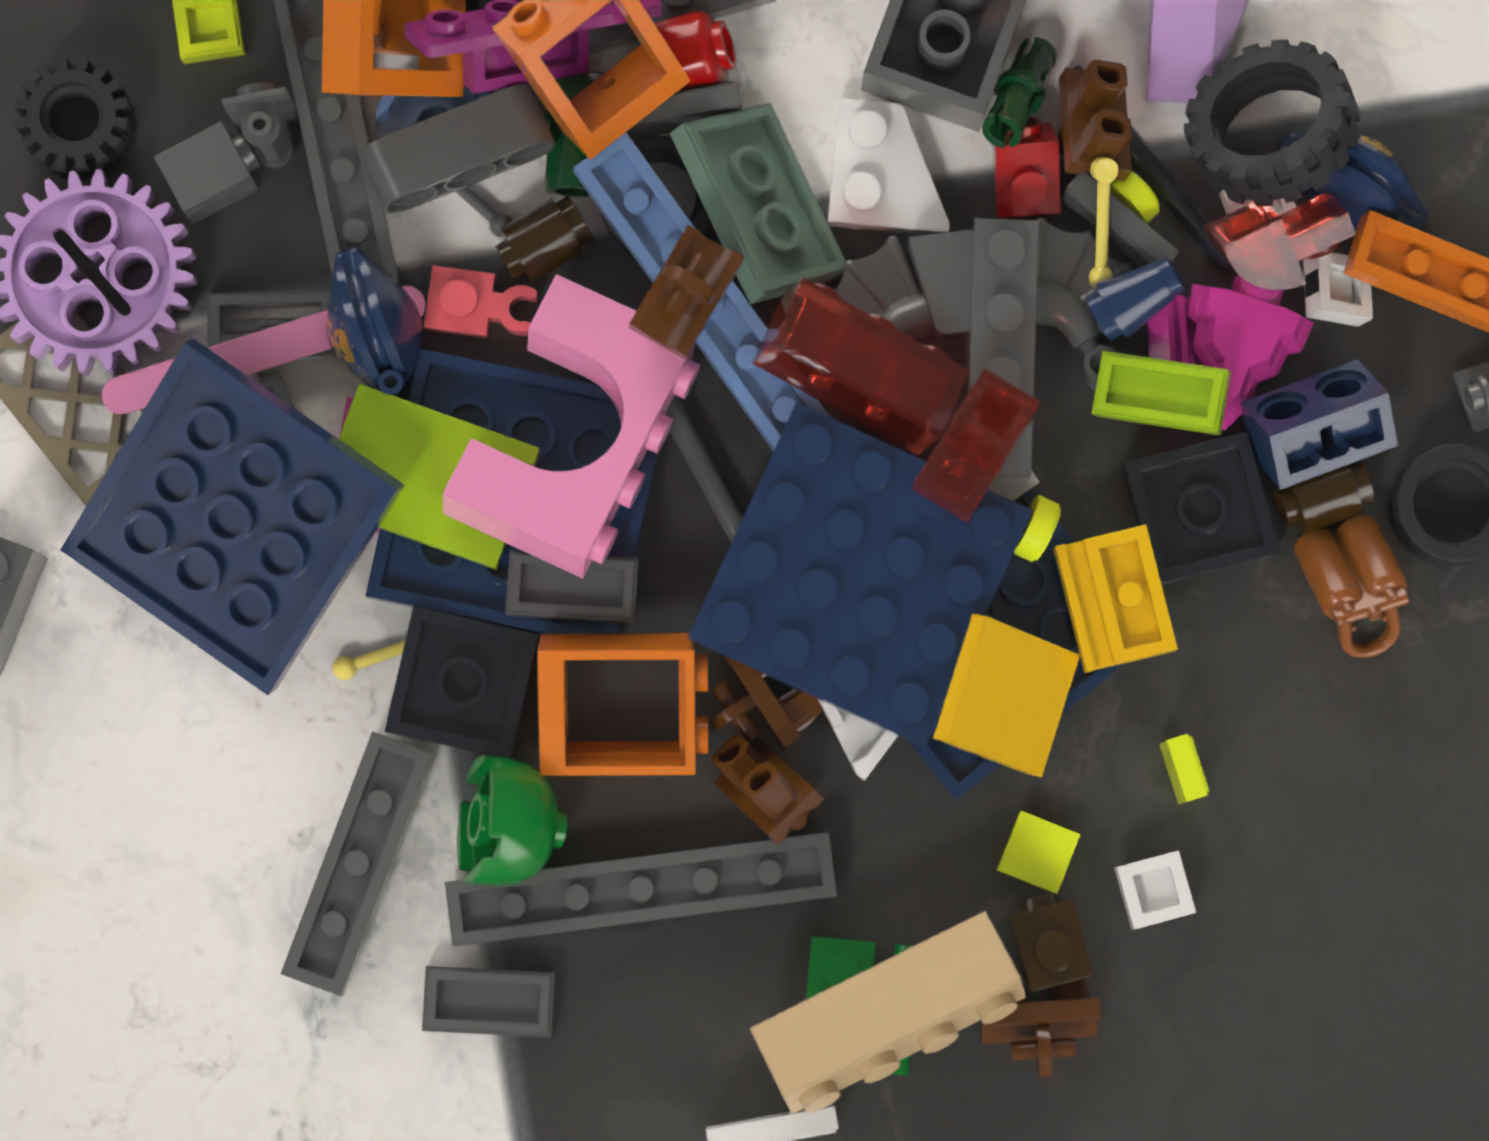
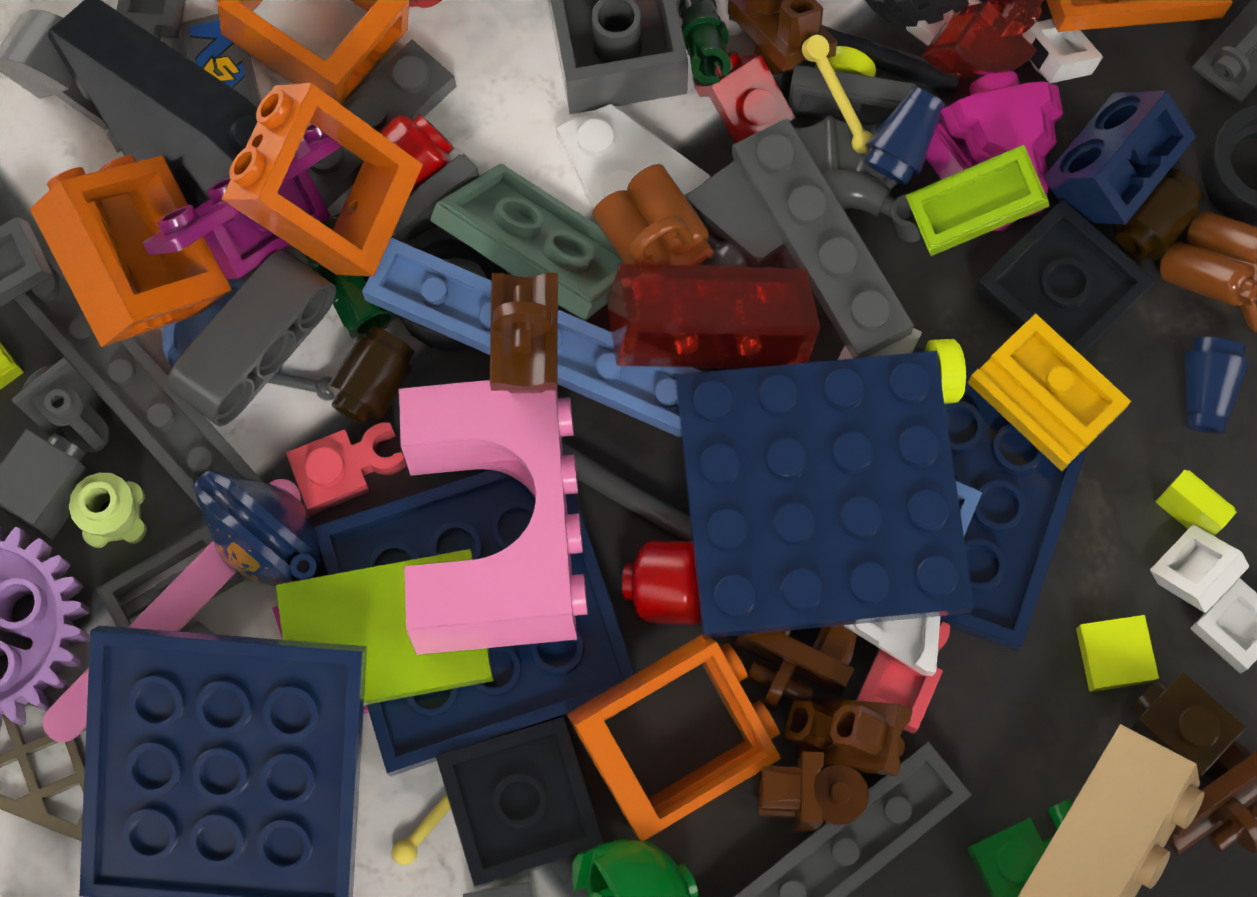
camera: 25 degrees left, 10 degrees down
(264, 242) = (119, 520): none -> yellowish green brick
(550, 592) = (555, 670): dark grey tile -> none
(686, 568) = (663, 583): none -> red head
(720, 828) = (810, 796): none -> reddish brown hips
(832, 775) = (897, 683): none -> coral plate
(865, 250) = (653, 222): none -> dark orange piece
(976, 445) = (858, 315): clear red brick -> none
(1006, 695) = (1013, 524): yellow tile -> none
(1151, 822) = (1199, 568): none -> white plate
(1272, 672) = (1213, 382): none -> dark blue cone

